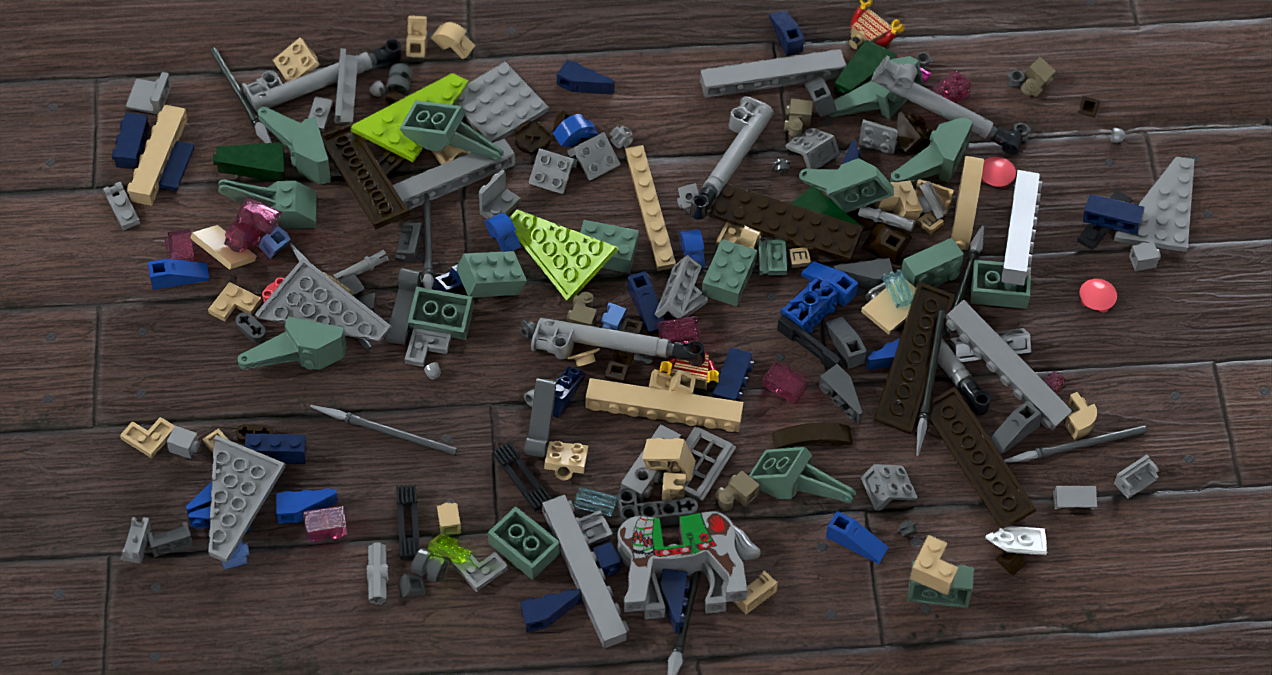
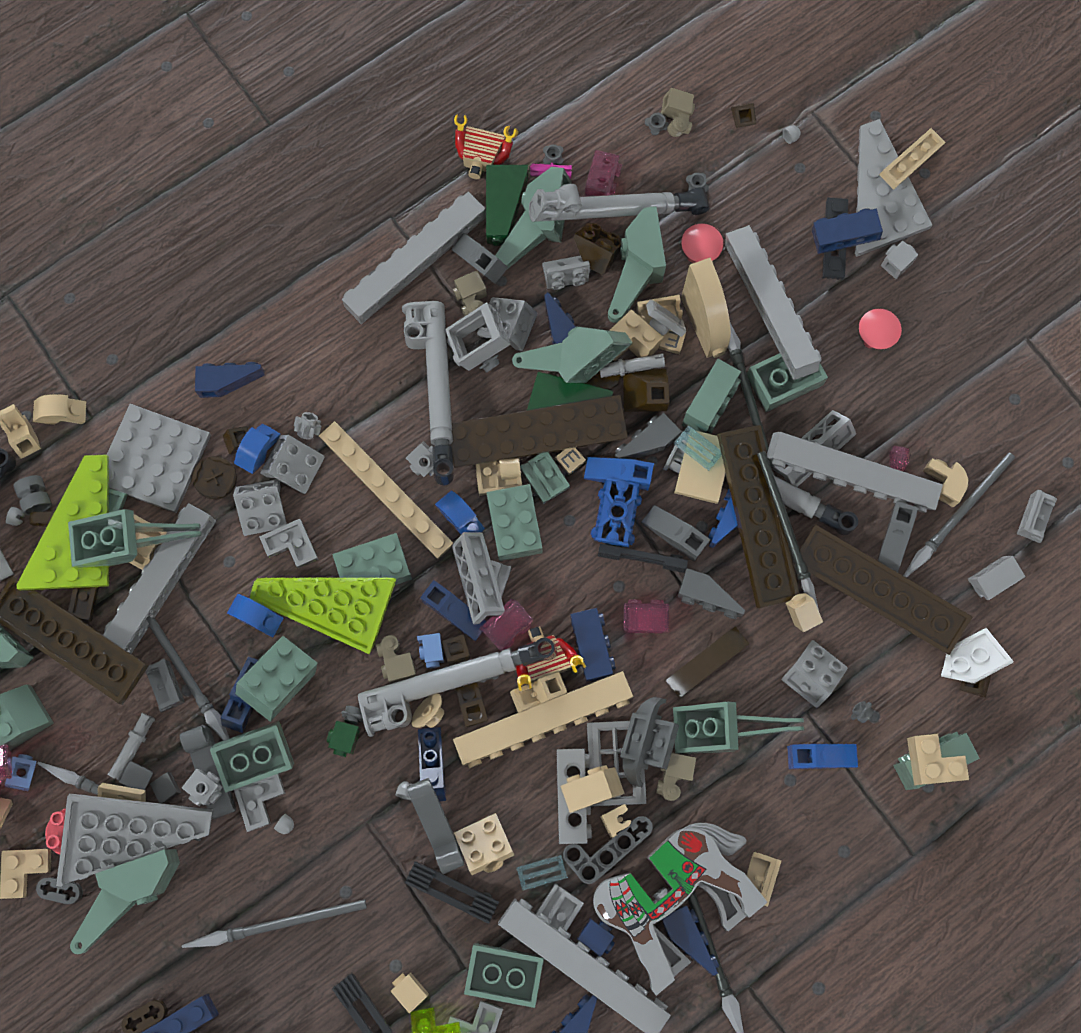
camera: 30 degrees left, 20 degrees up
(395, 308) = (196, 784): none -> light grey brick
(495, 197) = (225, 578): light grey bracket -> none
(512, 340) = (343, 738): none -> dark green brick
(559, 199) = (291, 537): none -> light grey plate
(730, 456) = (647, 741): none -> dark grey plate
(787, 32) = (400, 199): dark blue slope -> none
(795, 130) = (468, 324): none -> light grey window
(907, 438) = (804, 612): none -> tan brick
(1200, 194) = (912, 158): none -> tan plate

